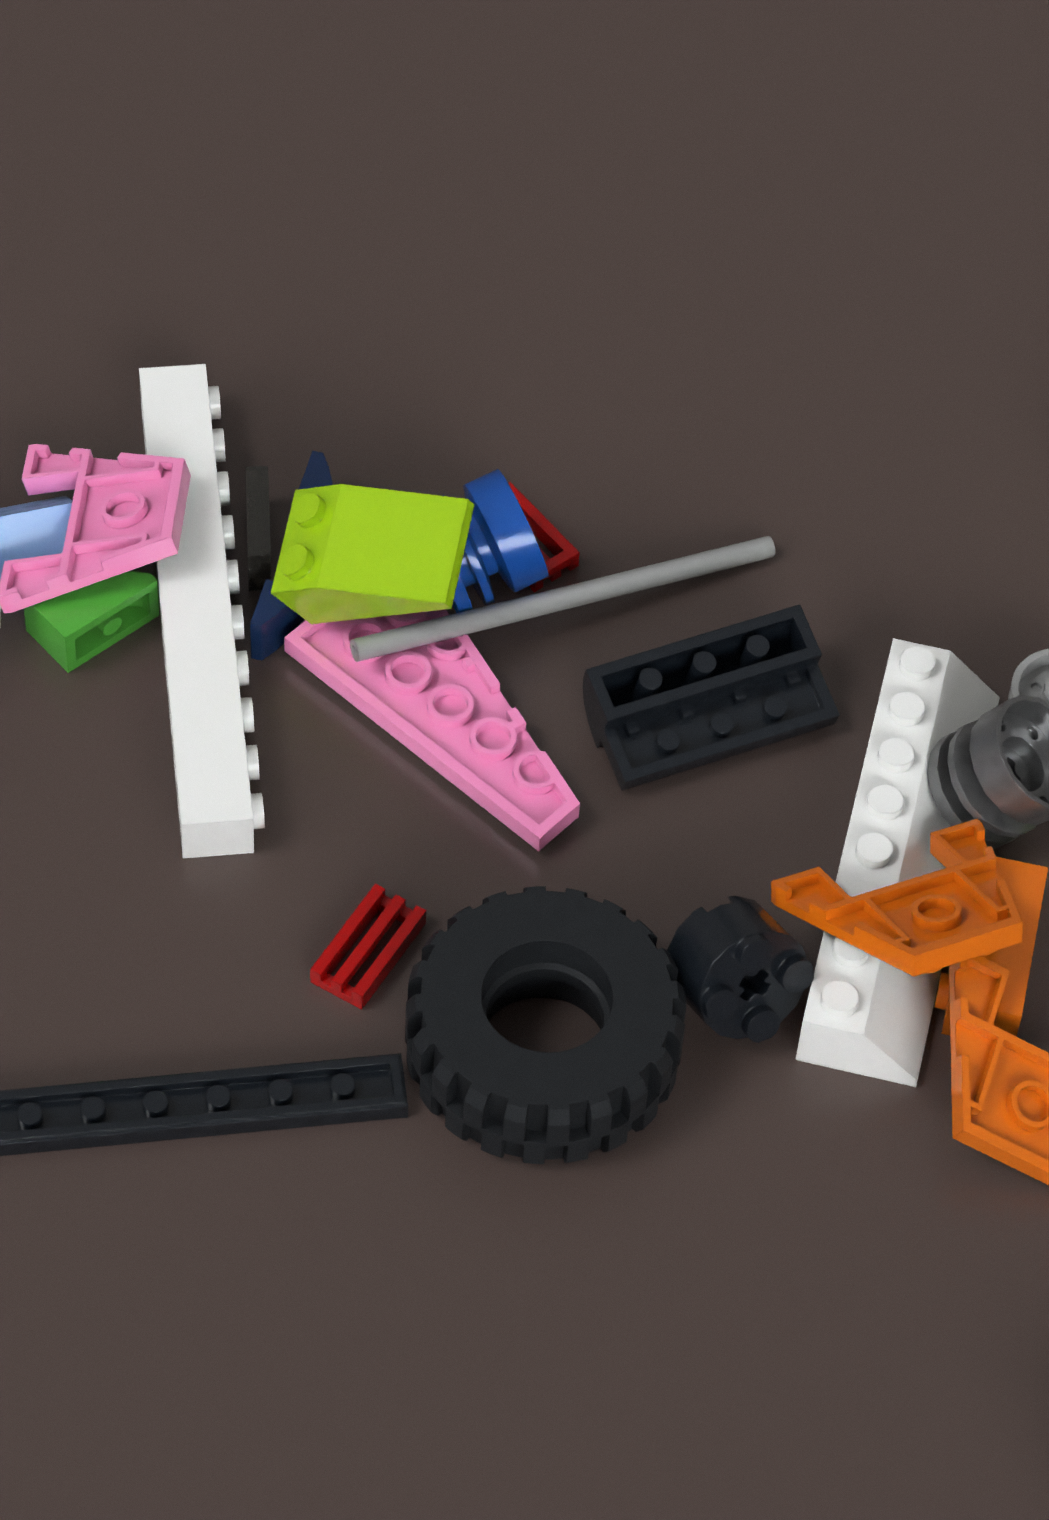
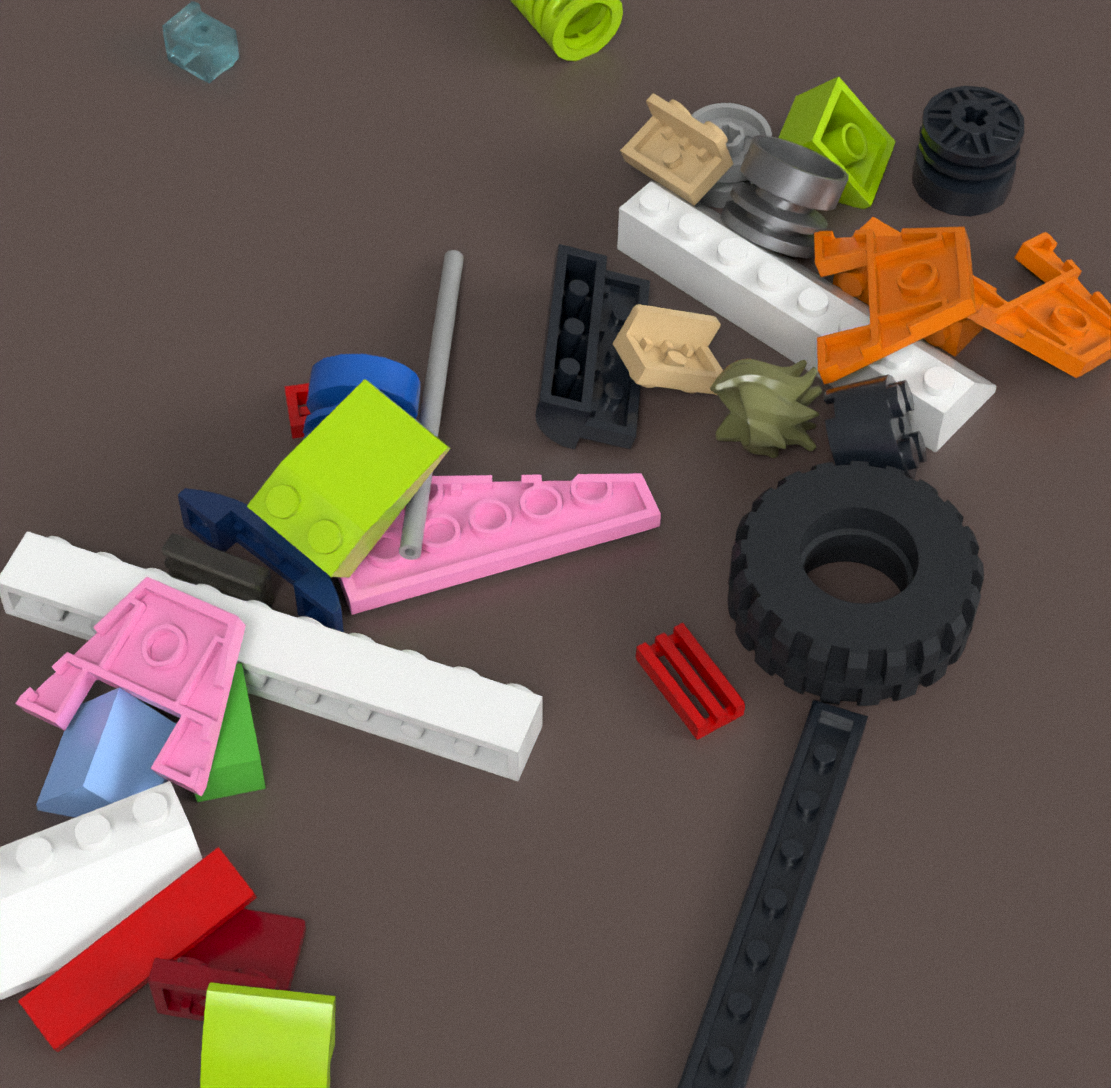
camera: 60 degrees left, 0 degrees up
(723, 860) = (767, 405): none -> olive hair
(743, 763) = (669, 349): none -> tan bracket
(900, 218) = (200, 43): none -> clear light blue brick
(998, 653) = (679, 150): none -> tan bracket

